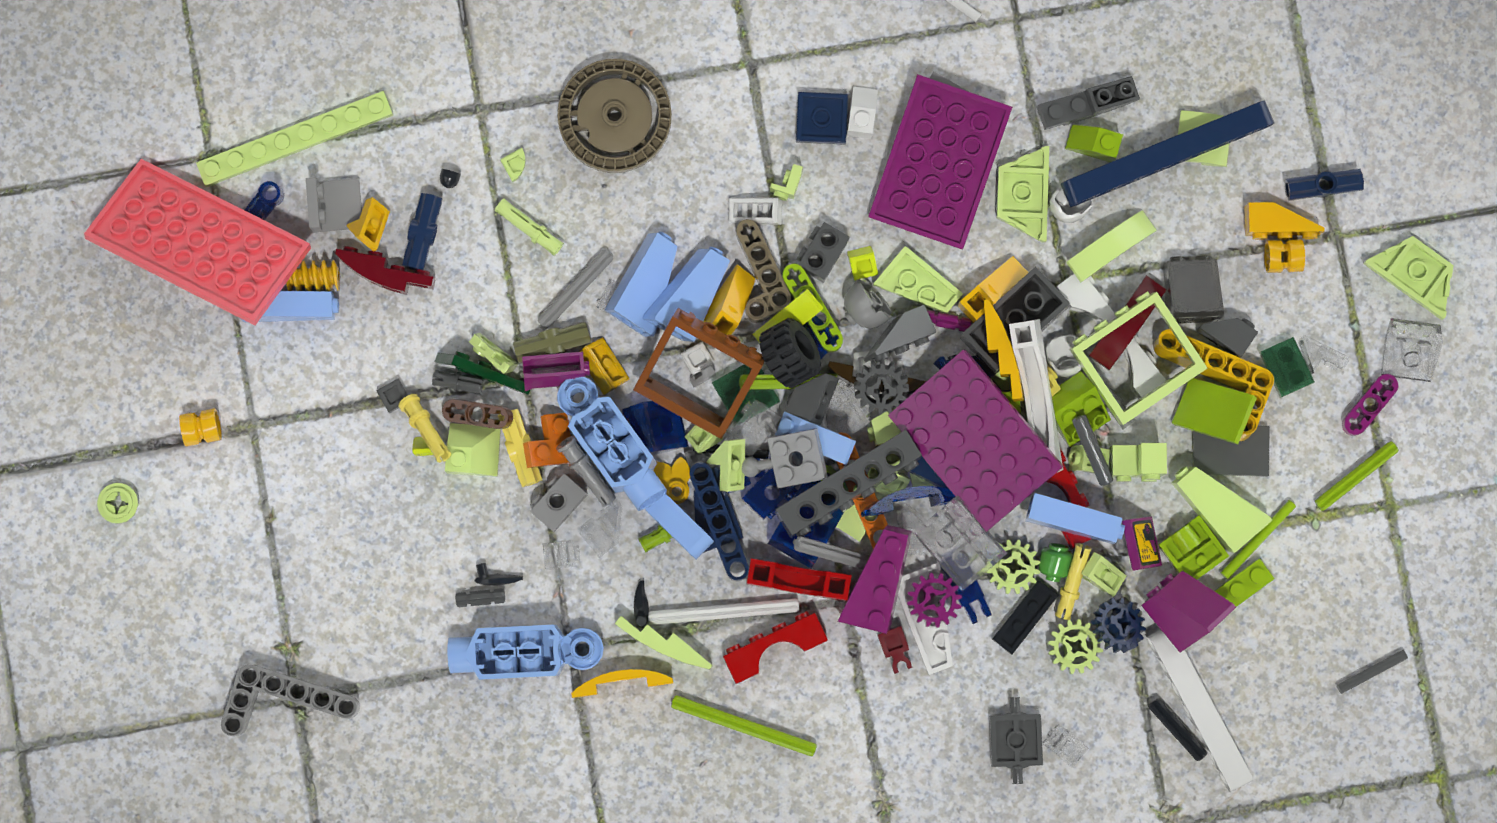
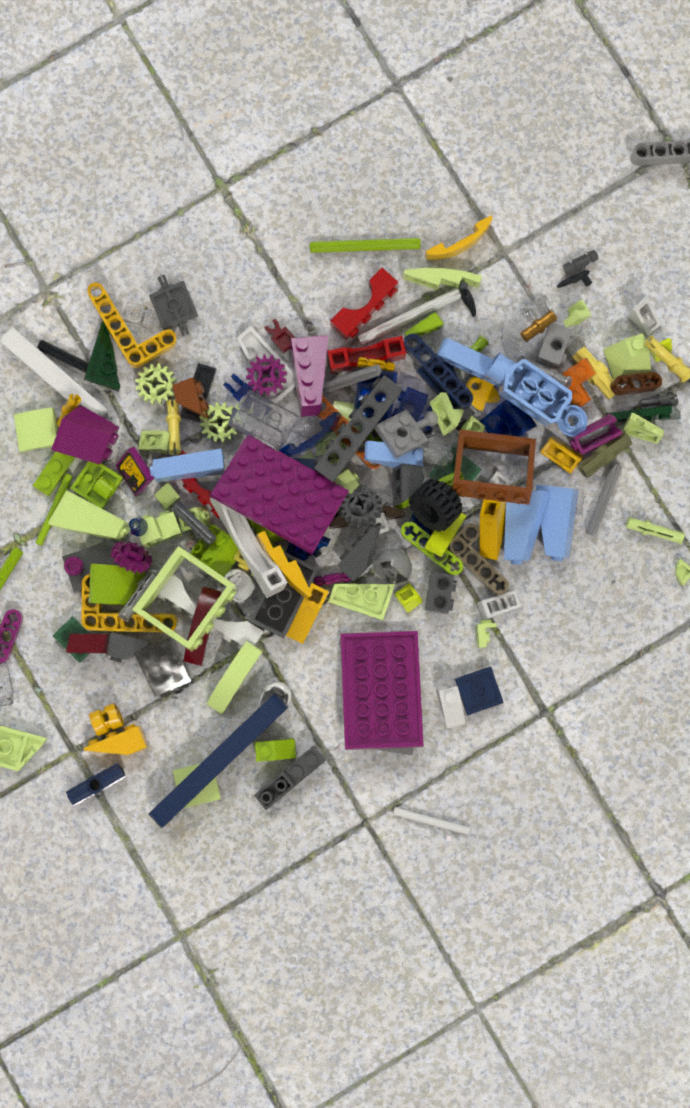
camera: 165 degrees right, 0 degrees up
(429, 494) = (645, 317): none -> white slope
(510, 530) = (577, 314): none -> yellowish green bracket
(522, 651) = (537, 233): light blue brick -> none
(571, 530) = (538, 326): none -> pearl gold pin
(609, 96) = (643, 633): dark tan piece -> none
(707, 589) = (426, 326): none -> lime slope
(792, 561) = (363, 362): none -> yellow axle
(1024, 193) = (311, 692): yellowish green wing -> none
(1038, 609) = (190, 396): none -> dark orange slope
(1055, 561) = (191, 437): bright green head -> none
(1091, 727) = (123, 331): none -> yellow beam
(1111, 500) = (167, 496): none -> yellowish green slope
(1118, 625) = (128, 401): dark blue gear -> none
(1134, 697) = (102, 364): none -> dark green wing
(1159, 468) = (141, 529): none -> cone
(1181, 395) = (127, 612): none -> light grey pin
(1184, 438) = (131, 556): none -> magenta gear
(1197, 652) = (70, 406): none -> yellow pin
(1244, 647) = (36, 429): none -> yellowish green slope
(1258, 457) = (73, 566): none -> magenta plate
(1275, 352) = (87, 643): none -> dark red slope

